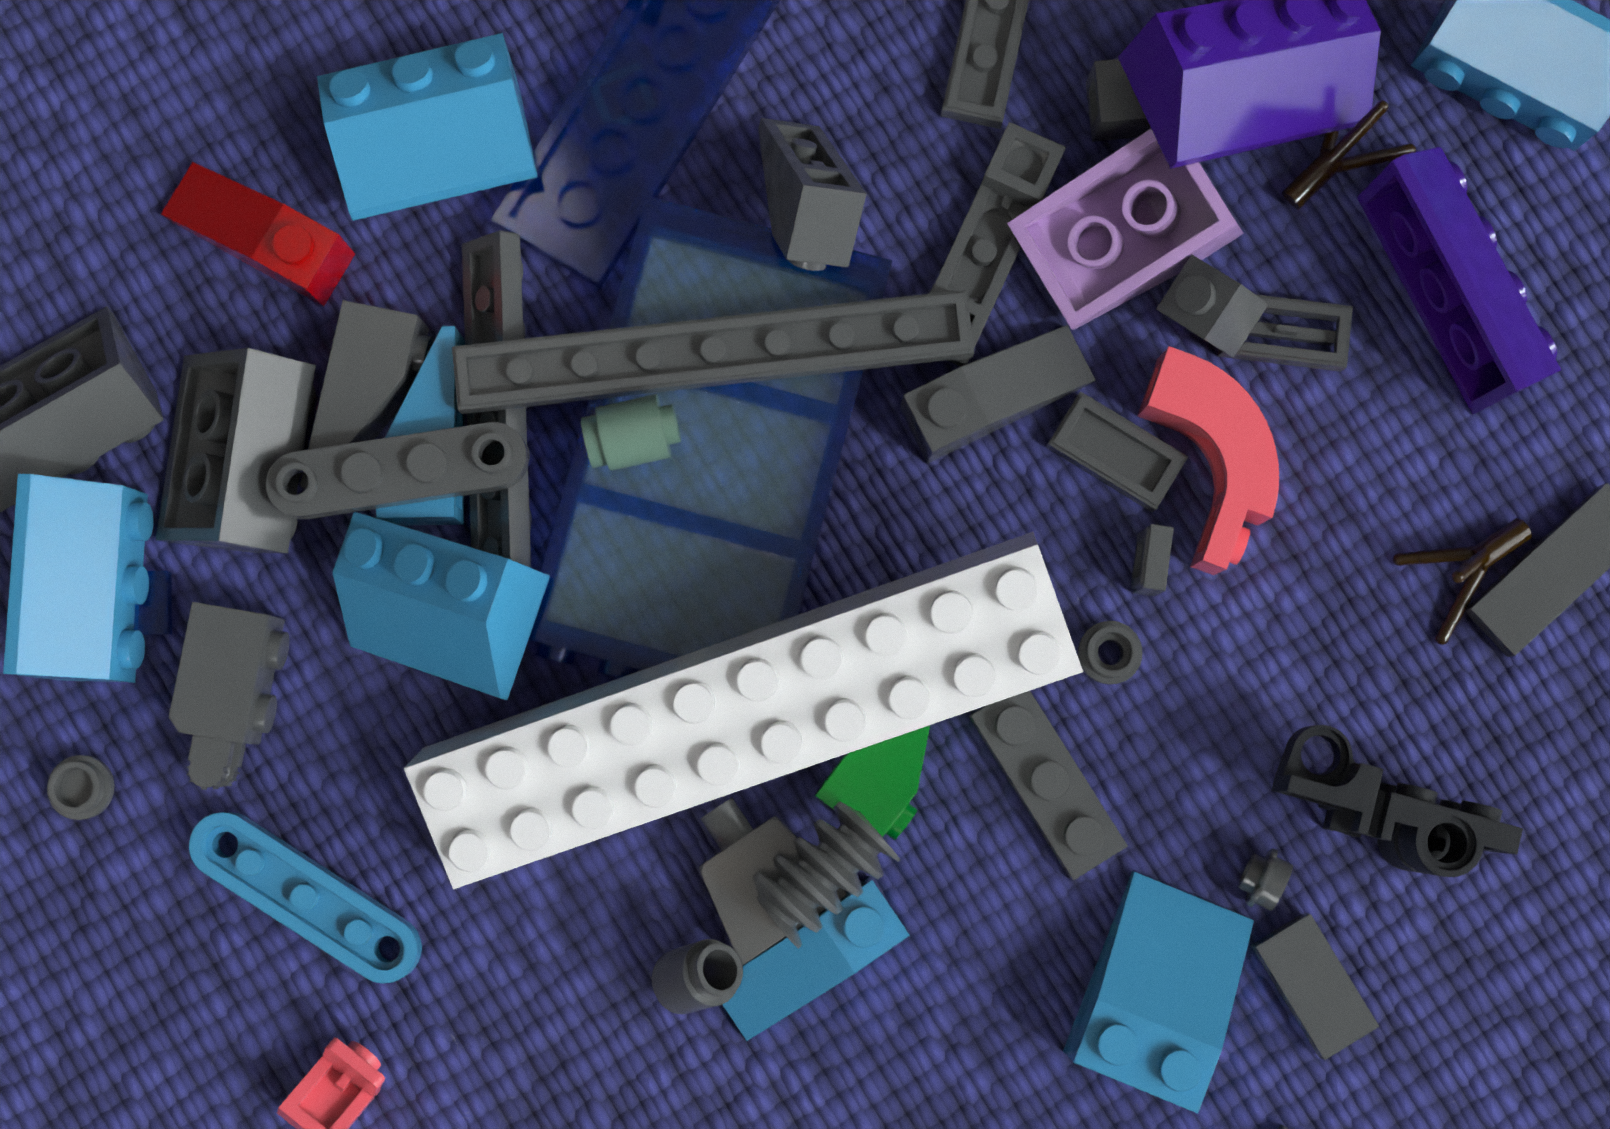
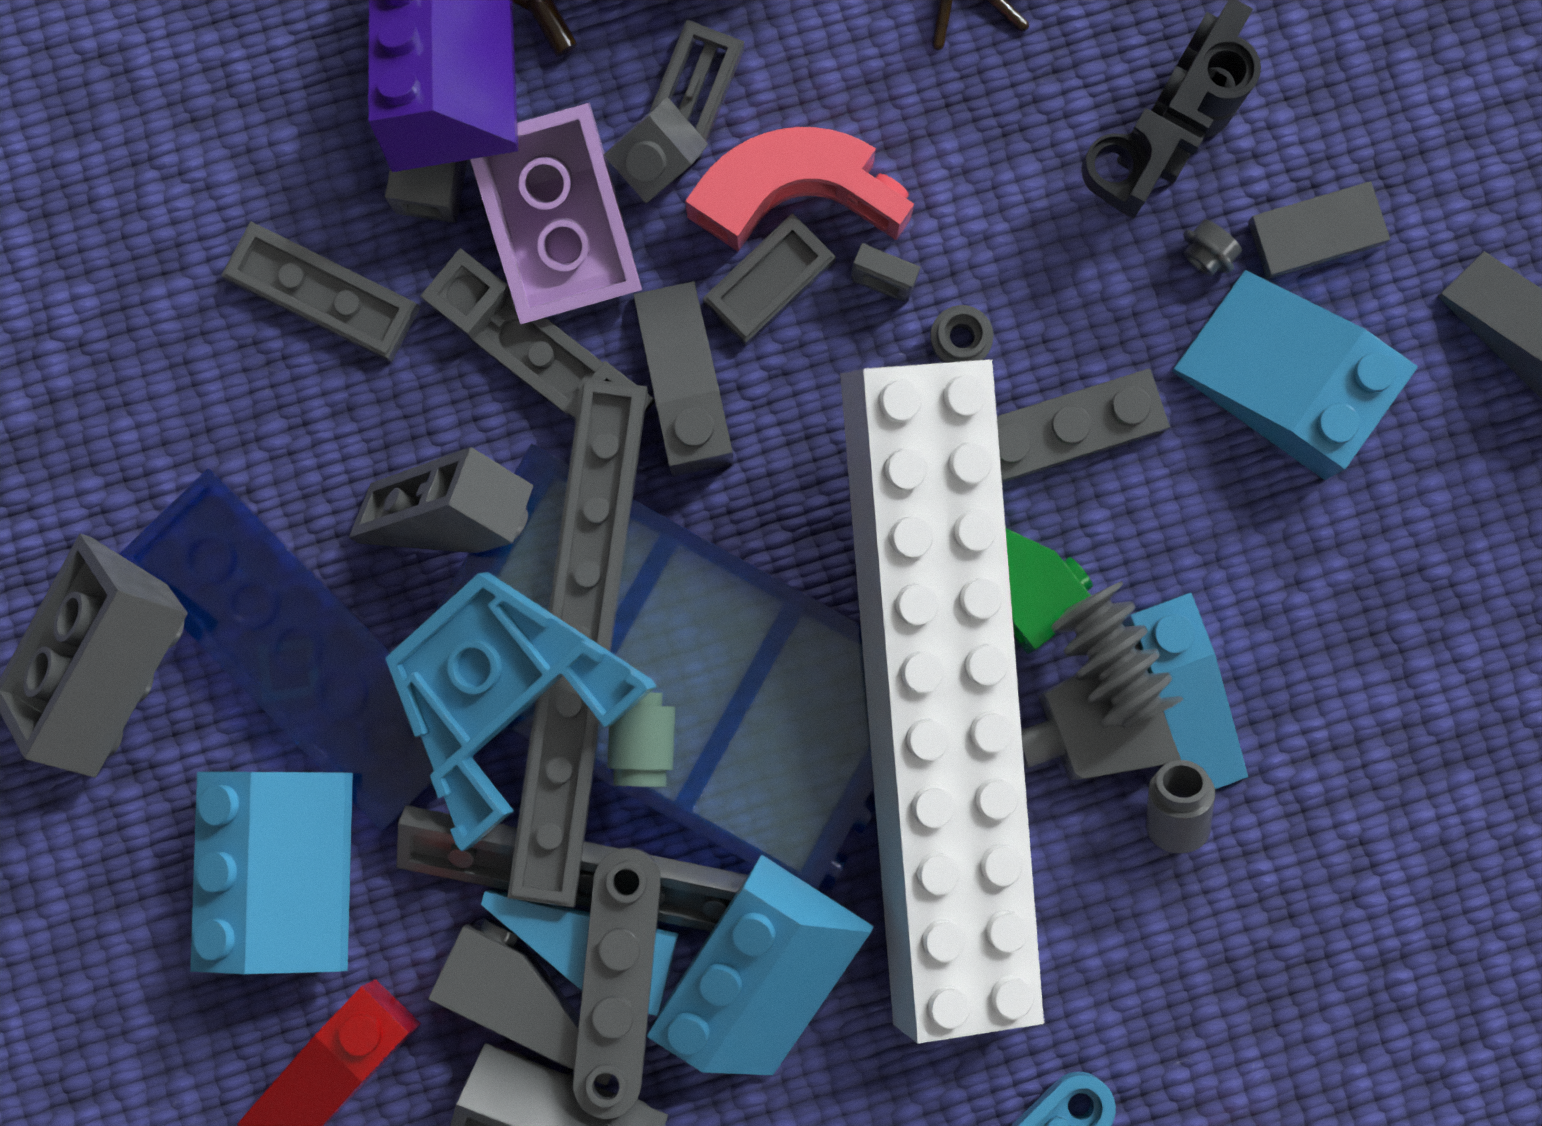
camera: 75 degrees left, 0 degrees up
(659, 263) = (479, 670): none -> dark azure wing

